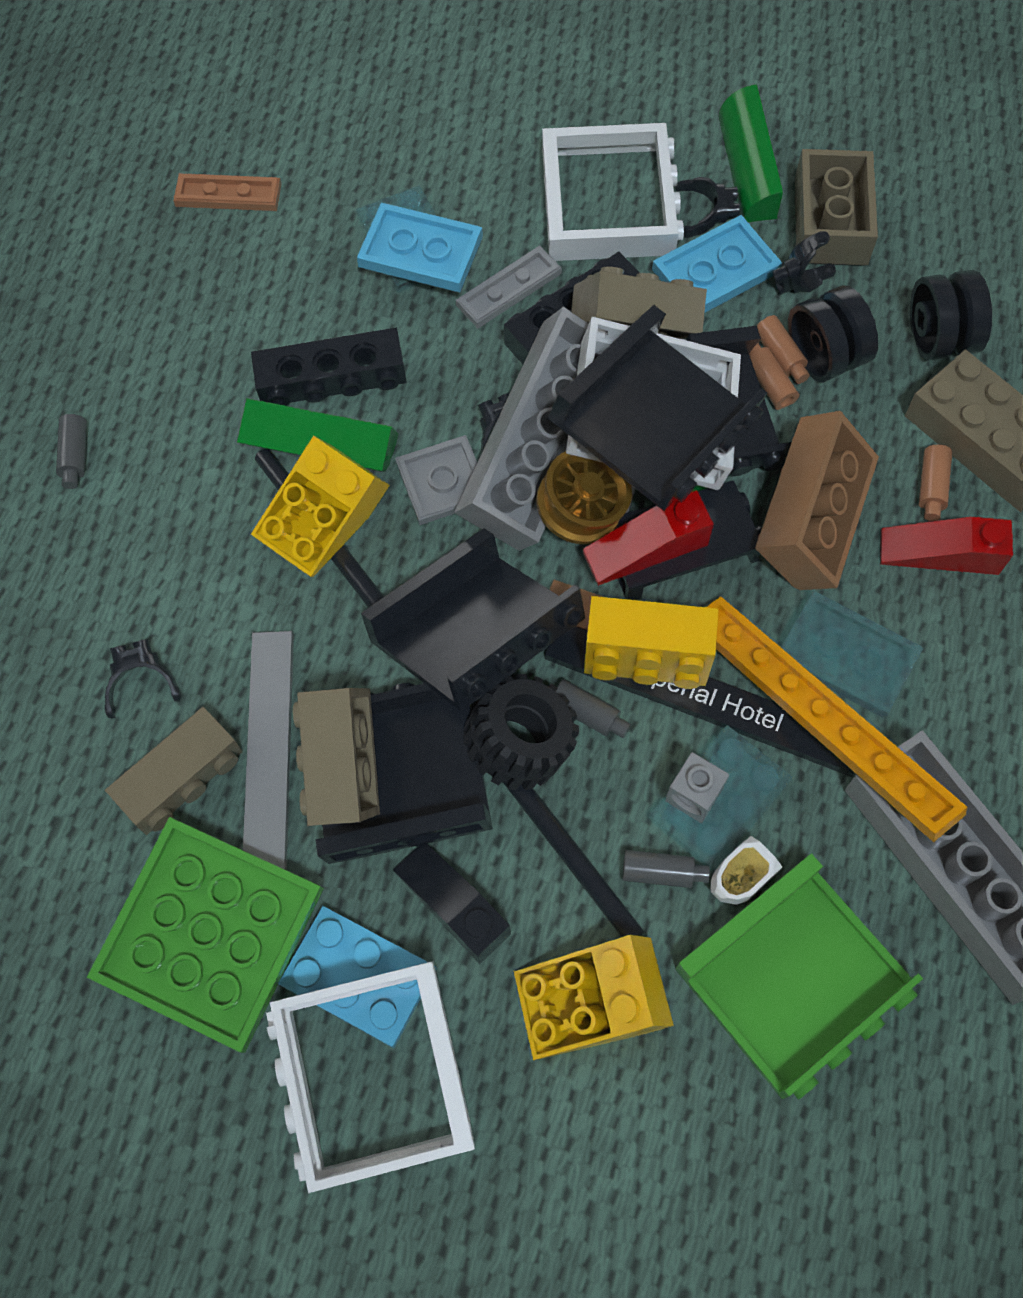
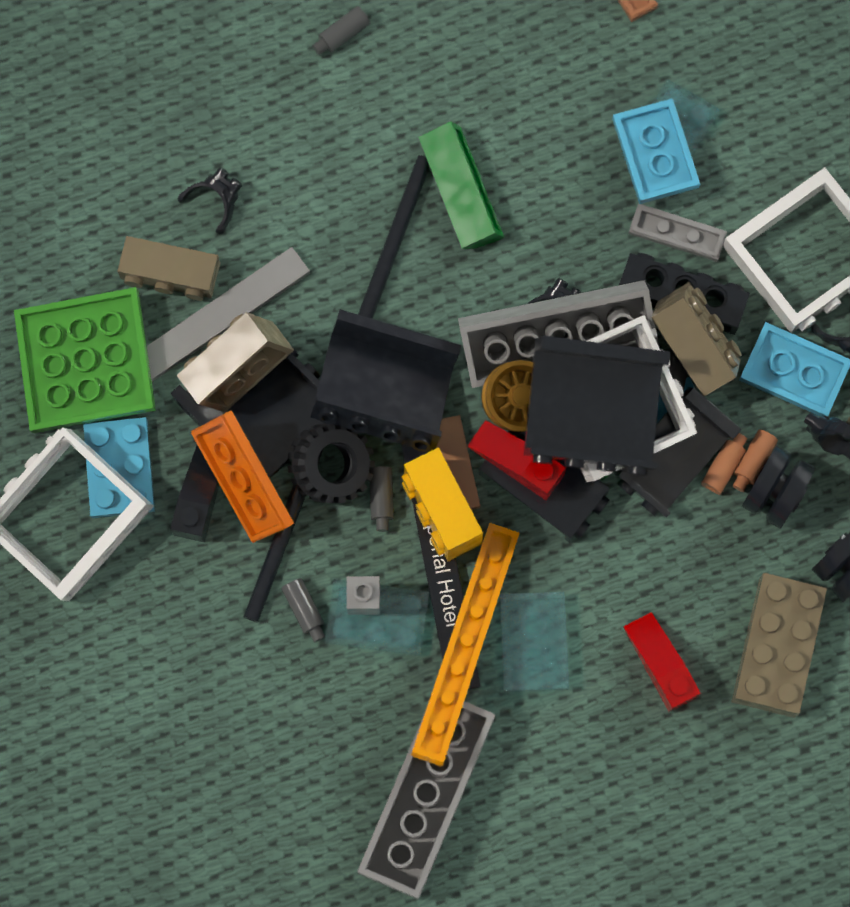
camera: 55 degrees right, 10 degrees up
(314, 359) = (491, 119): black brick -> none
(319, 507) = (405, 227): yellow slope -> none
(437, 477) = (487, 287): light grey tile -> none
(472, 832) = (242, 477): none -> orange tile
(593, 997) = (196, 616): yellow slope -> none
(744, 872) = (332, 659): rock -> none
(797, 980) = (289, 731): bright green panel -> none
(817, 502) = (628, 554): medium nougat brick -> none
(935, 480) = (712, 628): nougat cylinder -> none

